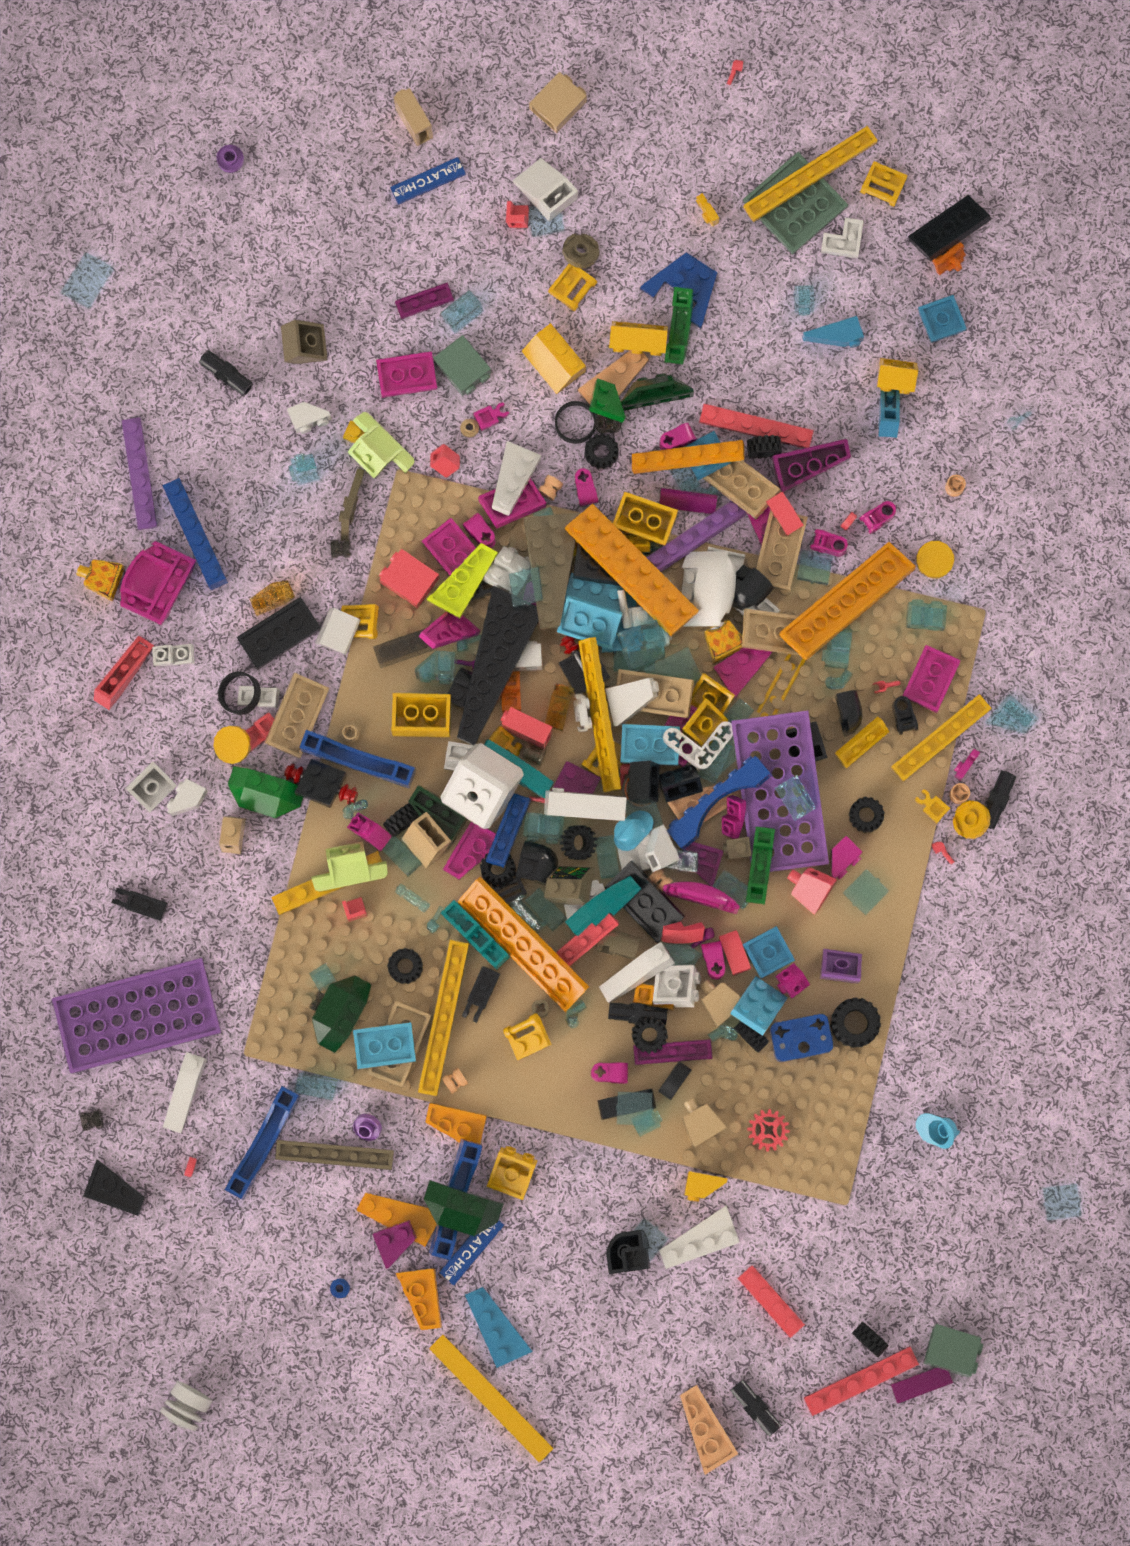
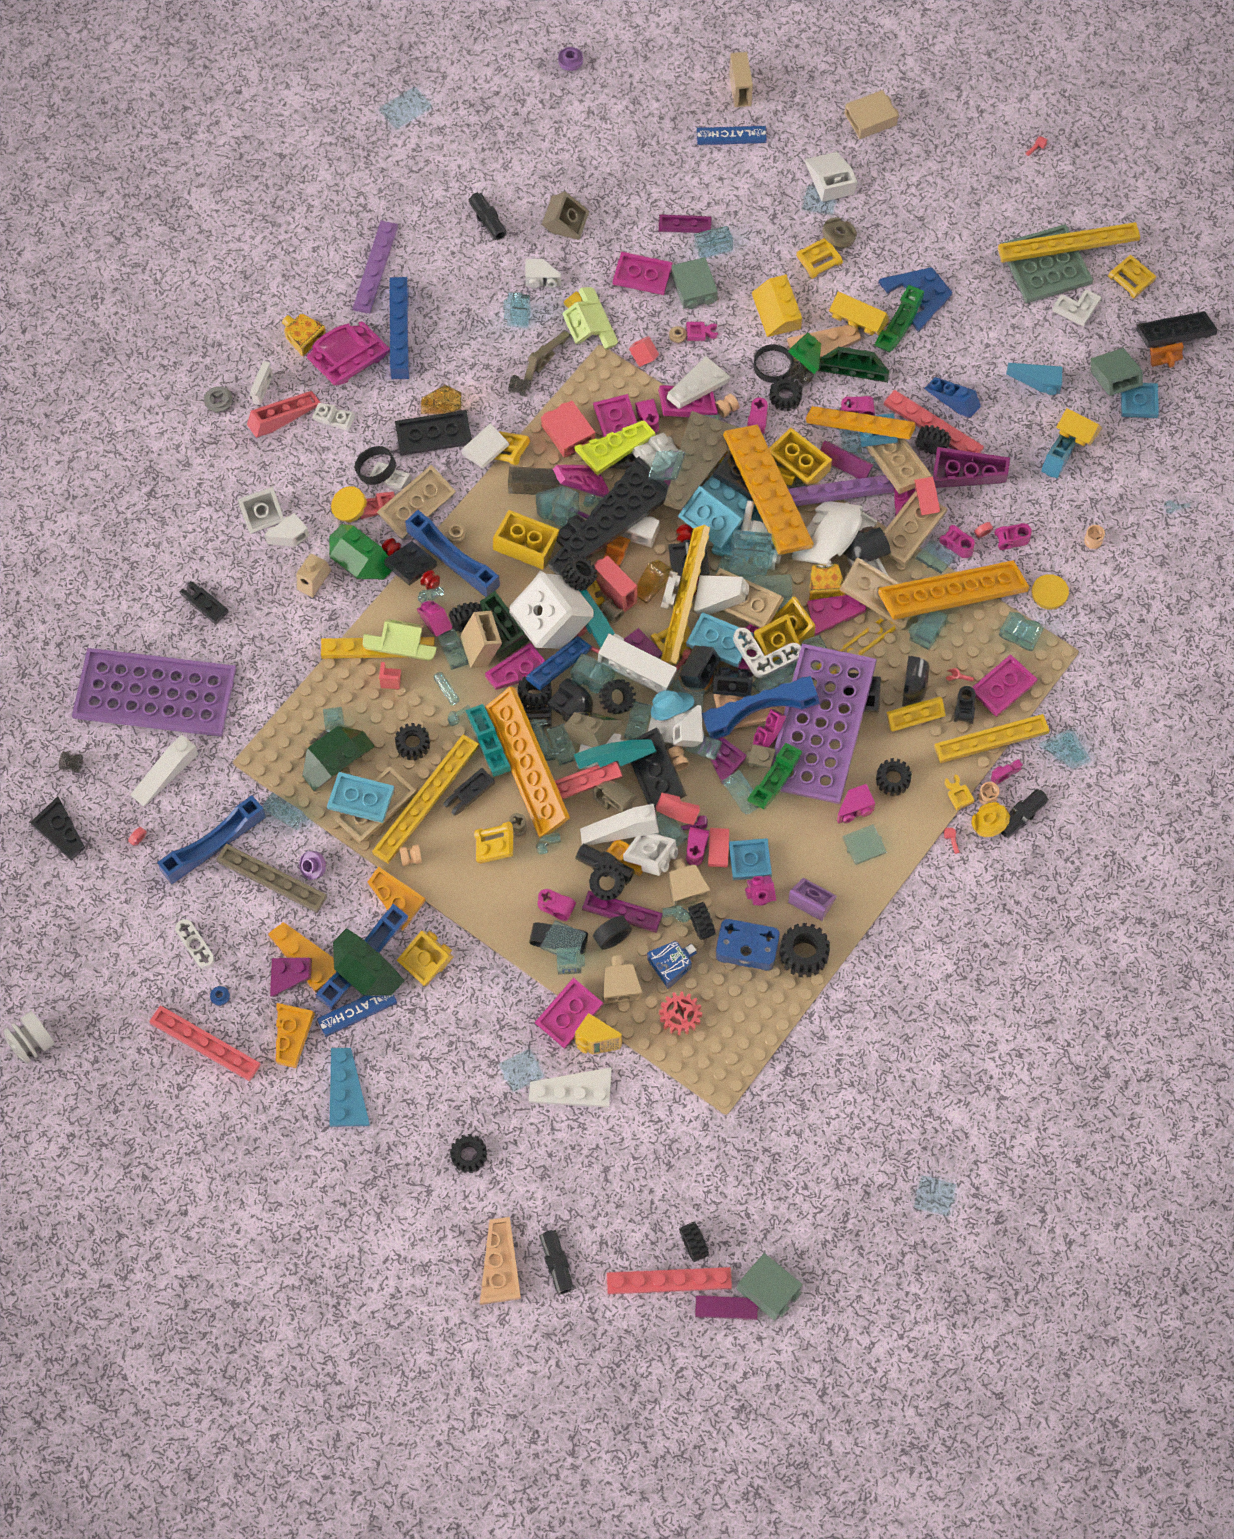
camera: 20 degrees right, 15 degrees down
(48, 675) = (217, 392): none -> light grey gear
(87, 647) = (261, 383): none -> white plate
(308, 1252) = (182, 935): none -> white beam
(347, 1339) = (205, 1043): none -> coral plate
(489, 745) = (579, 572): none -> black tyre
(491, 1398) = (311, 1152): yellow tile -> none
(517, 215) = (795, 188): coral panel -> none
(628, 1252) = (500, 1069): black brick -> none
(634, 1353) = (469, 1141): none -> black tyre
(667, 1171) = (568, 1012): none -> dark pink plate
(702, 895) = (708, 780): dark pink slope -> none
(709, 214) = (965, 244): yellow plate -> none
(739, 1083) = (671, 962): none -> blue torso
(759, 1005) = (720, 896): medium azure plate -> none
(763, 387) = (957, 397): none -> blue slope
(771, 1301) = (615, 1172): coral plate -> none
(795, 798) = (832, 729): clear light blue hinge -> none
(803, 299) = (1020, 339): clear light blue brick -> none
(811, 888) = (814, 817): coral torso -> none
(839, 682) = (926, 654): clear light blue arm -> none
(910, 299) = (1116, 371): none -> sand green brick
(937, 1130) = (841, 1078): medium azure piece -> none

